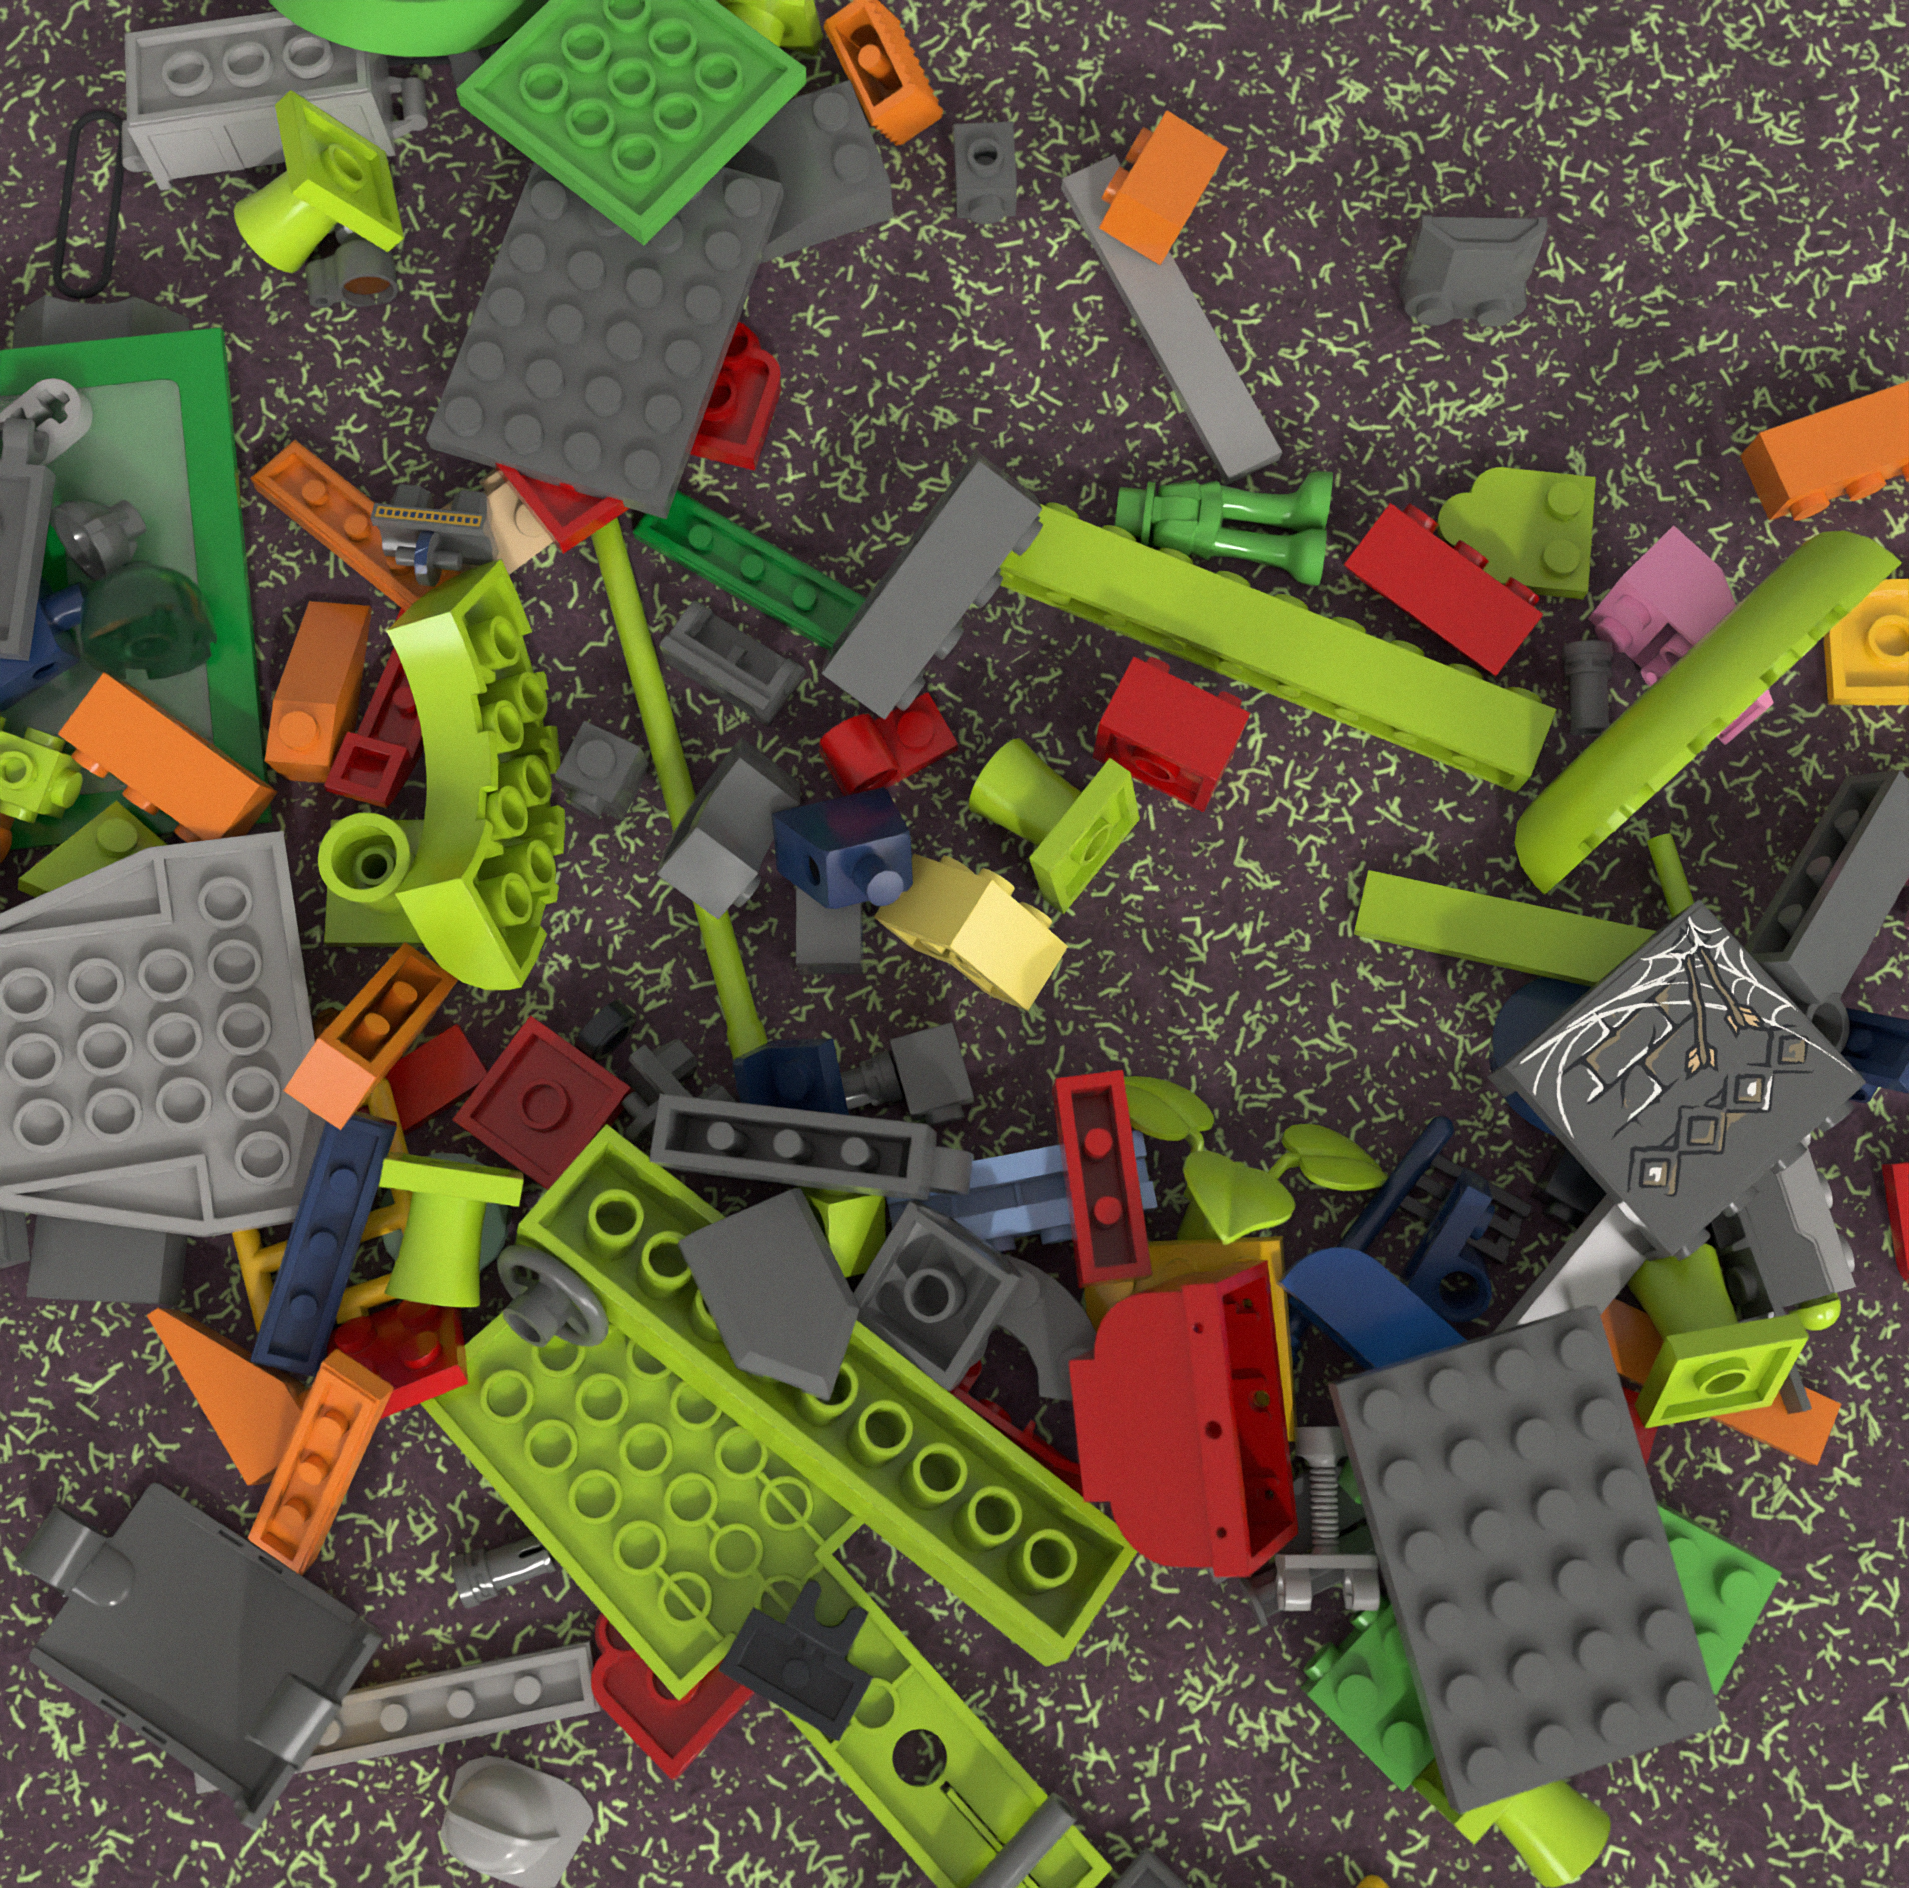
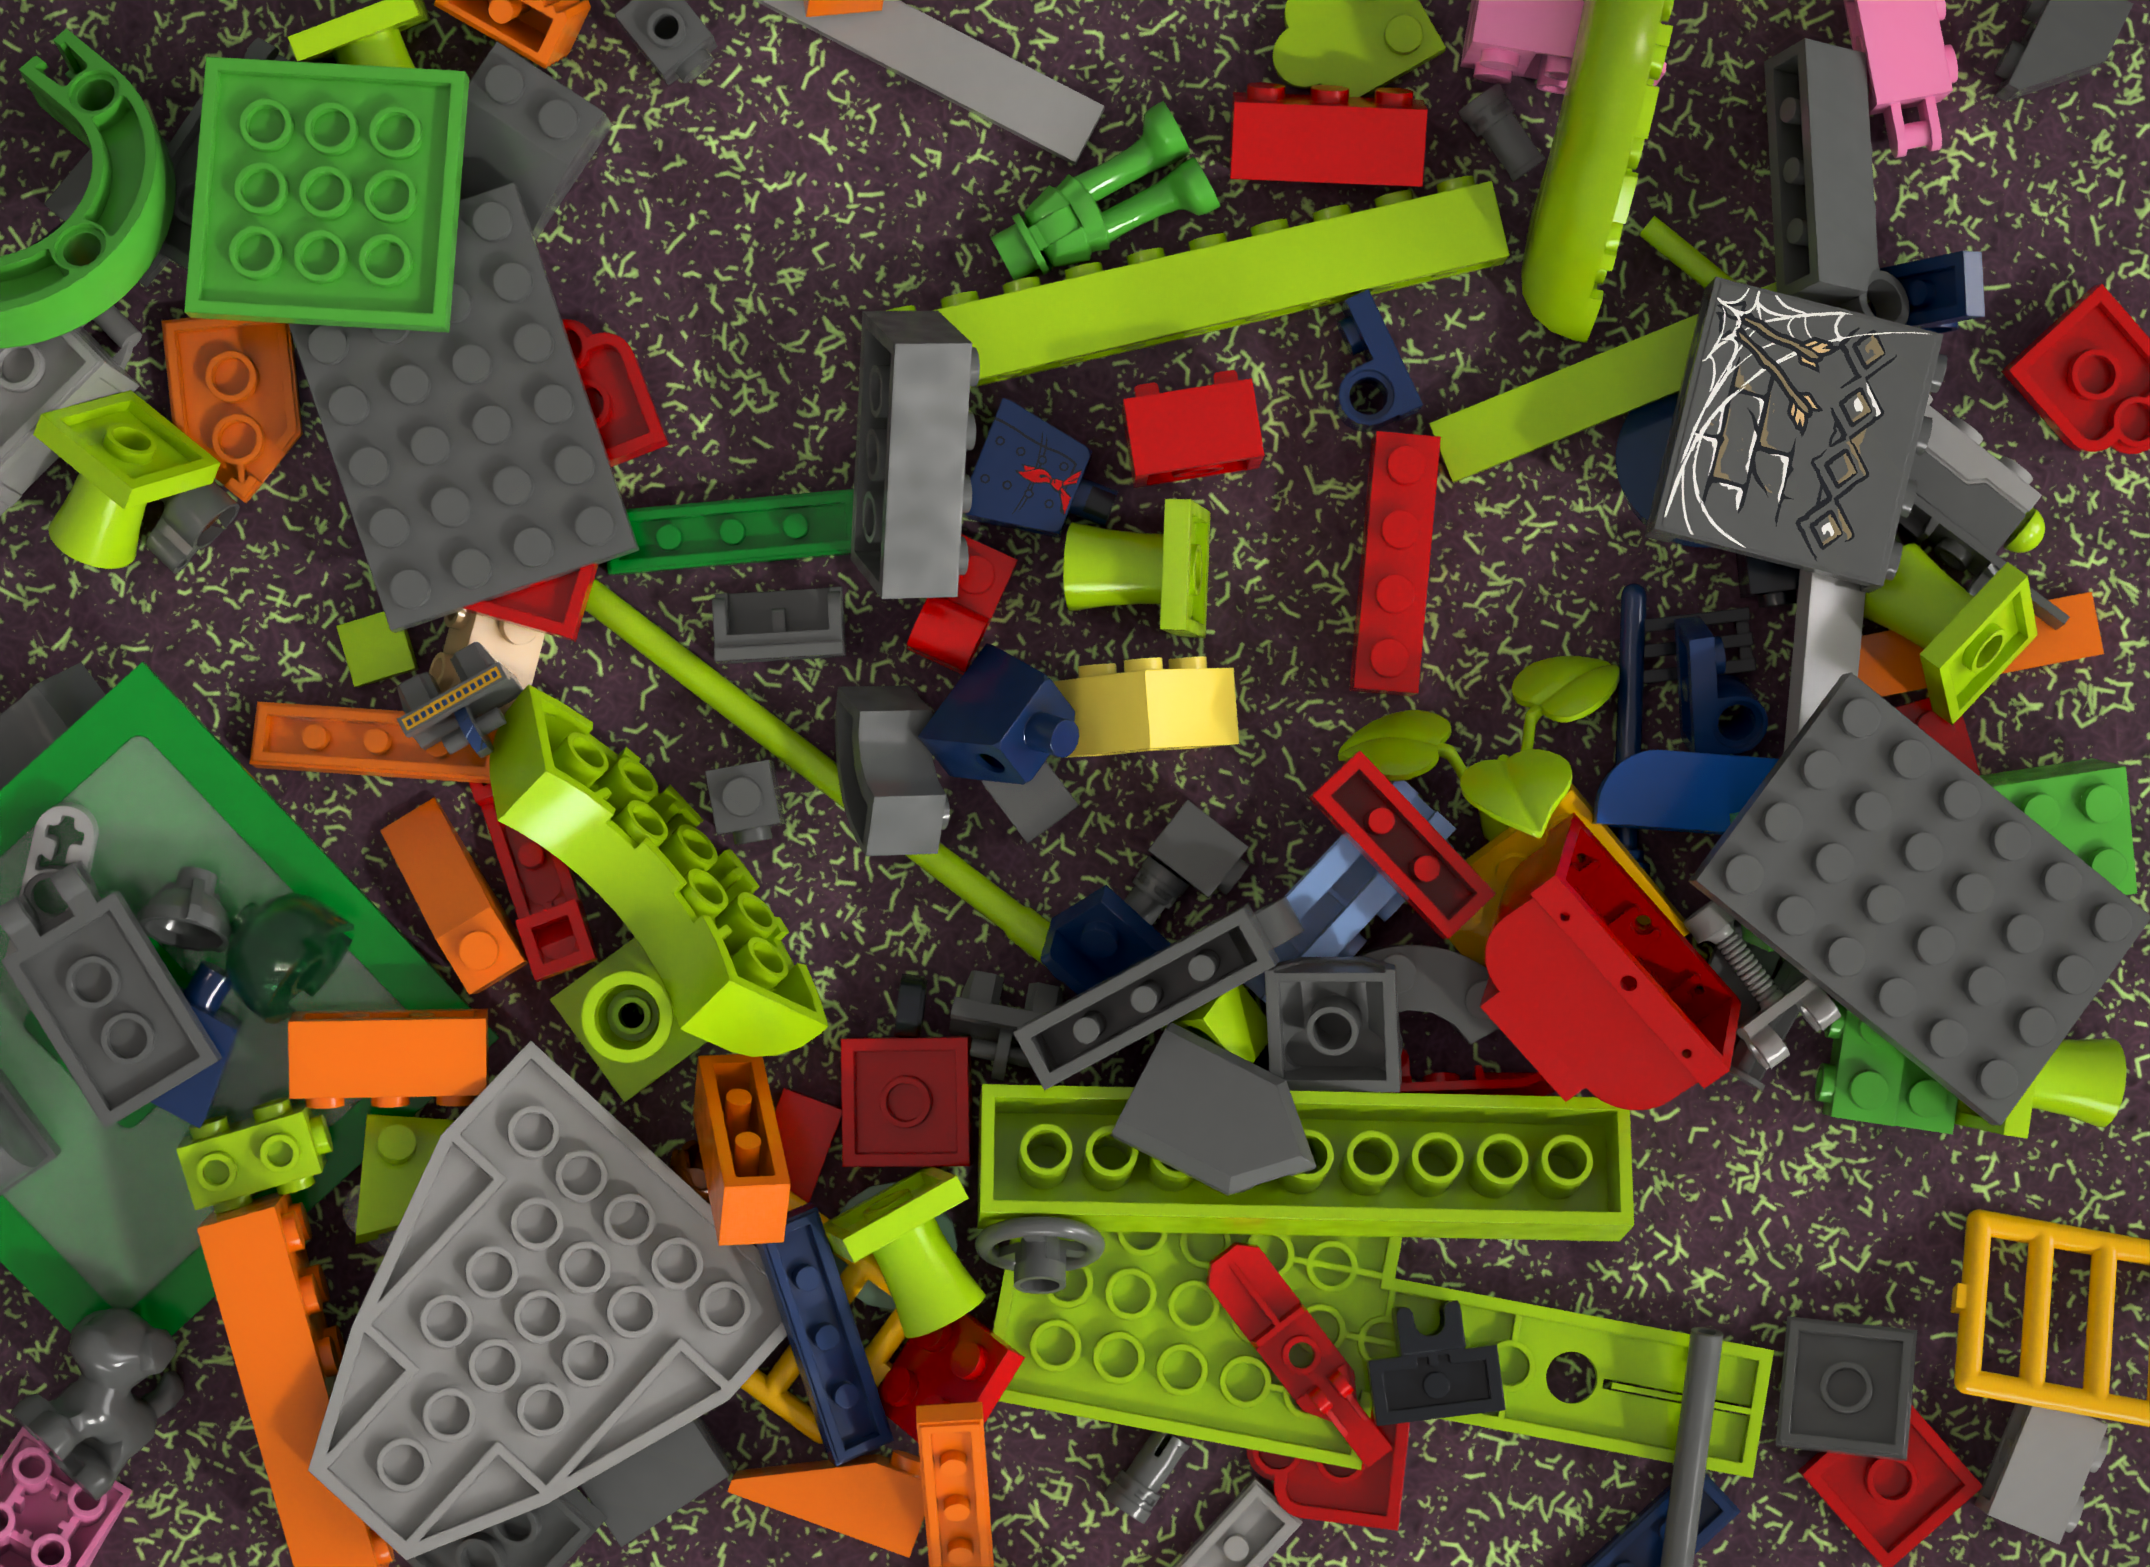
camera: 35 degrees left, 10 degrees up
(413, 462) = (374, 650): none -> lime tile
(457, 210) = (234, 394): none -> orange tile
(702, 1515) = (1275, 1322): none -> red piece
(1016, 686) = (1034, 477): none -> dark blue torso
(1260, 958) = (1395, 563): none -> red brick
(1357, 797) = (1367, 333): none -> dark blue plate

